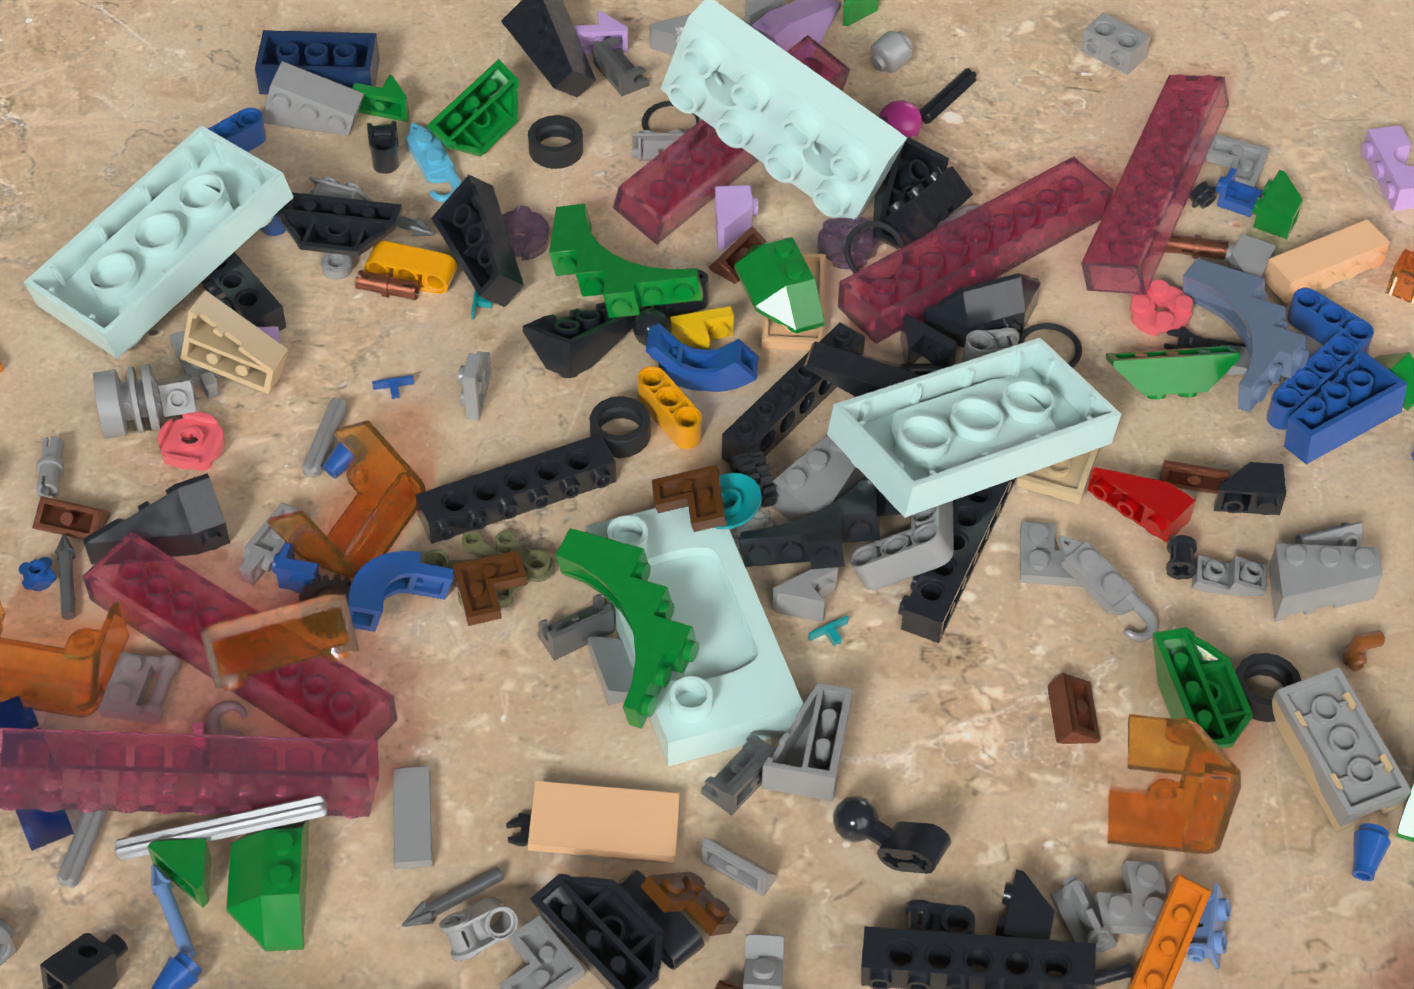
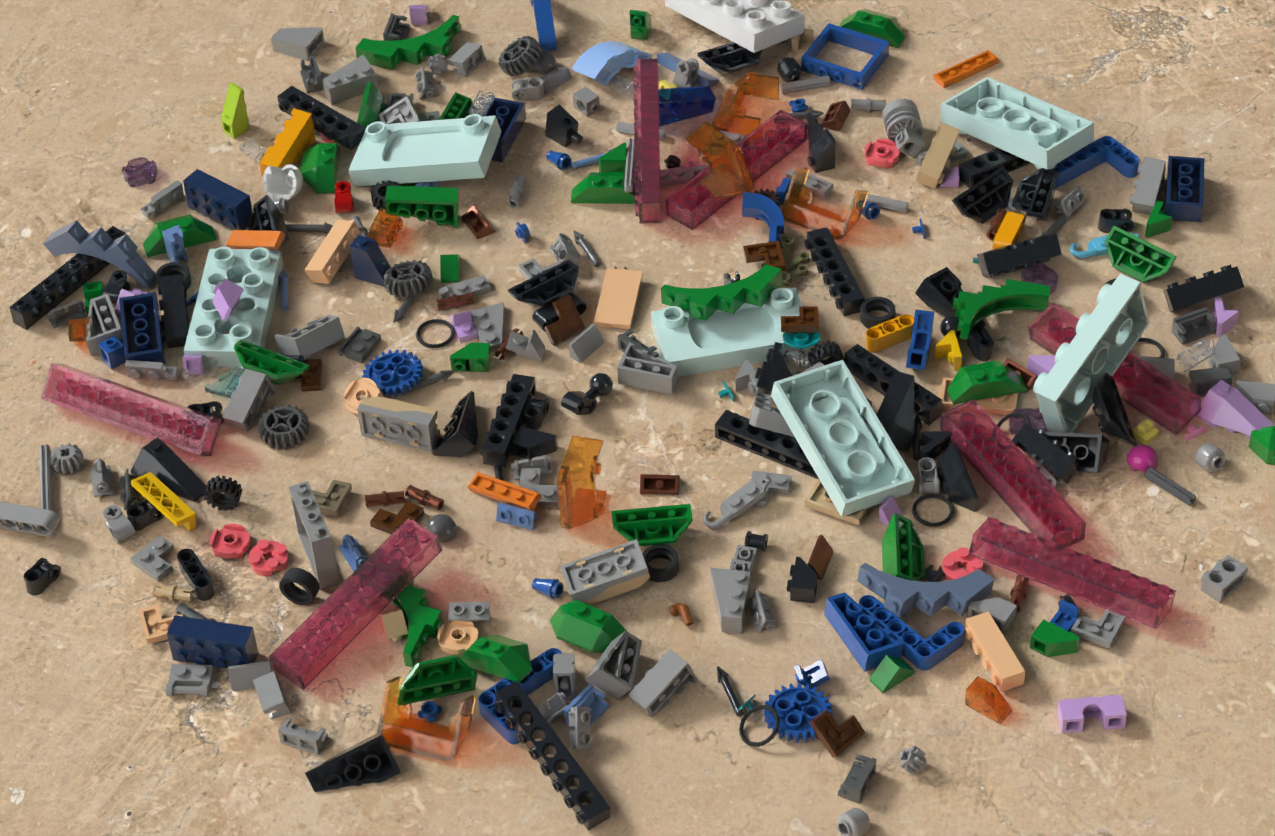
camera: 100 degrees right, 5 degrees down
(322, 295) = (986, 196): none -> black wedge
(412, 817) = (633, 235): light grey tile -> none
(475, 380) = (908, 256): light grey plate -> none
(1147, 501) = (796, 533): red slope -> none

